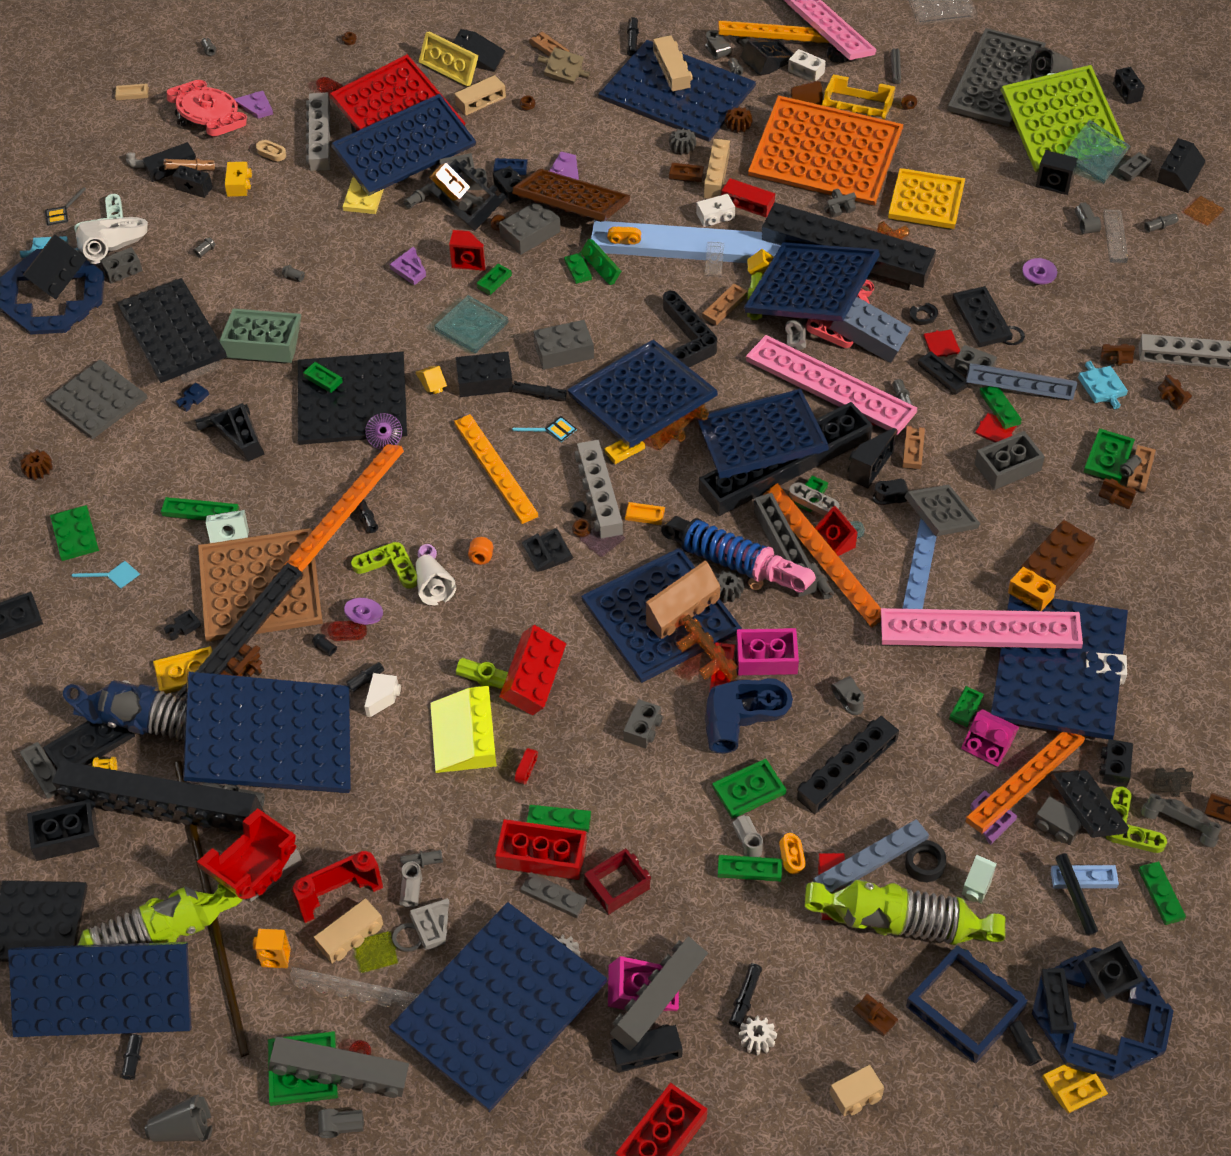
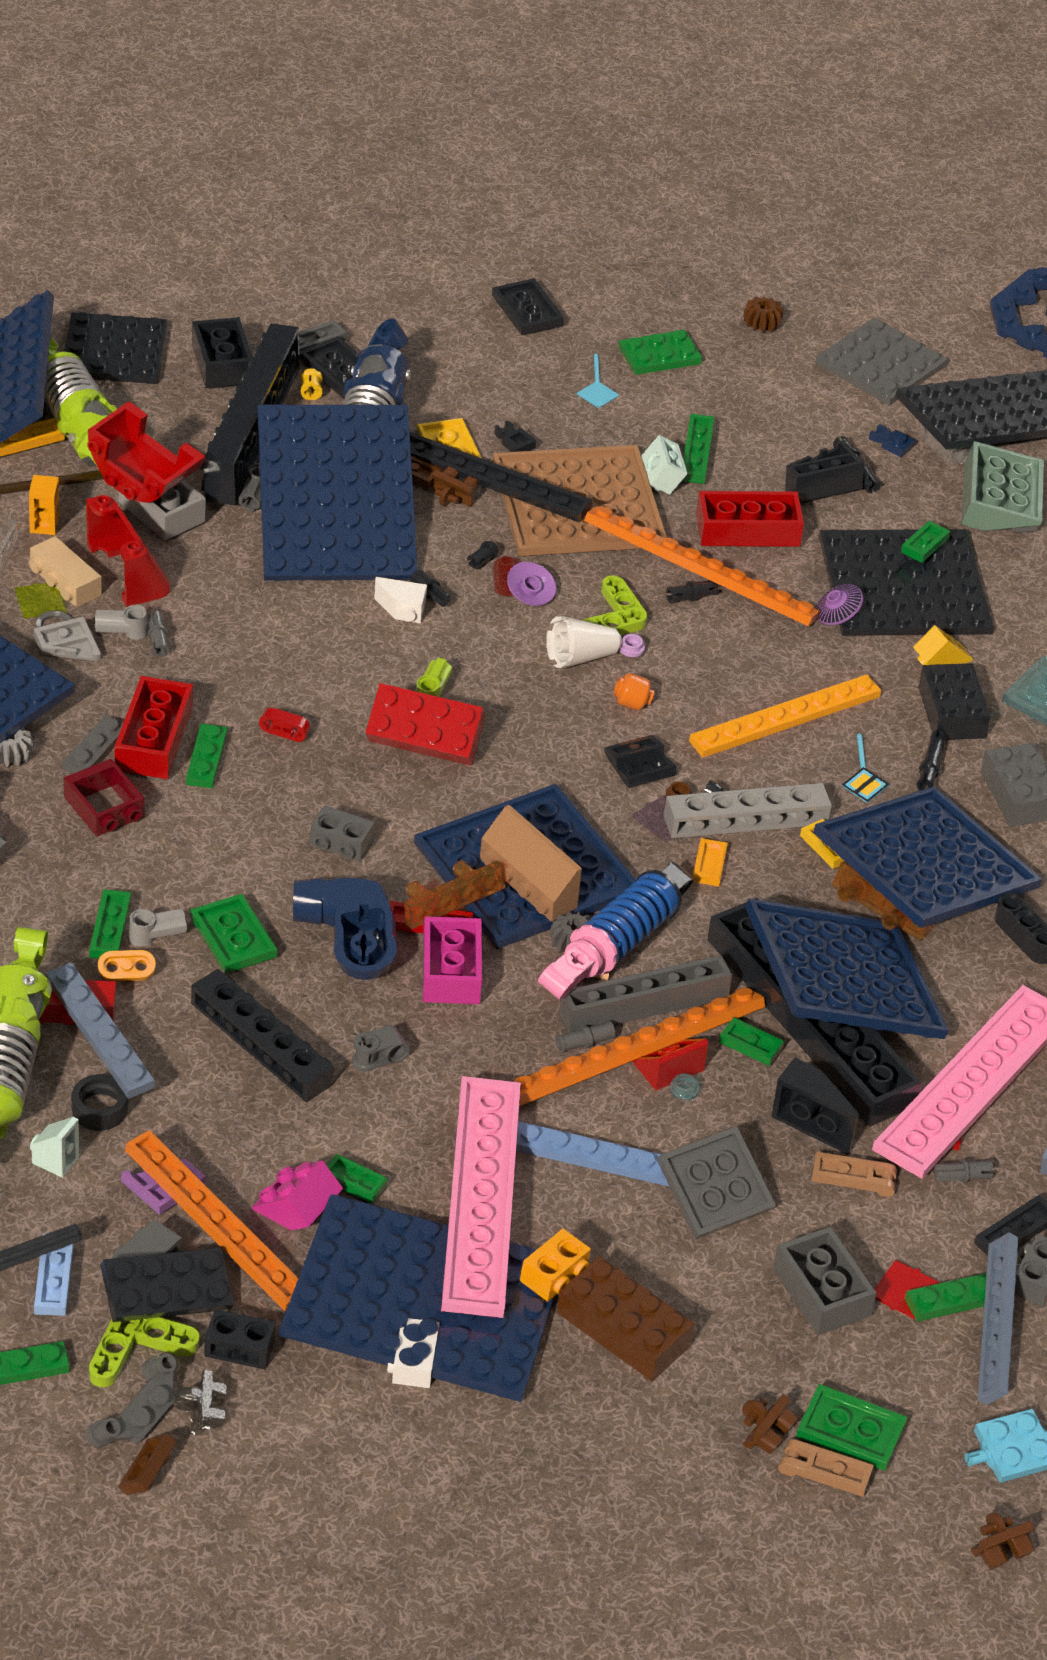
camera: 85 degrees right, 10 degrees down
(291, 477) = (749, 518): none -> red brick
(463, 731) = (340, 675): neon yellow slope -> none
(809, 493) = (731, 1022): light grey beam -> none
(892, 490) = (758, 1131): black piece -> none
(1127, 469) = (818, 1437): dark grey pin -> none

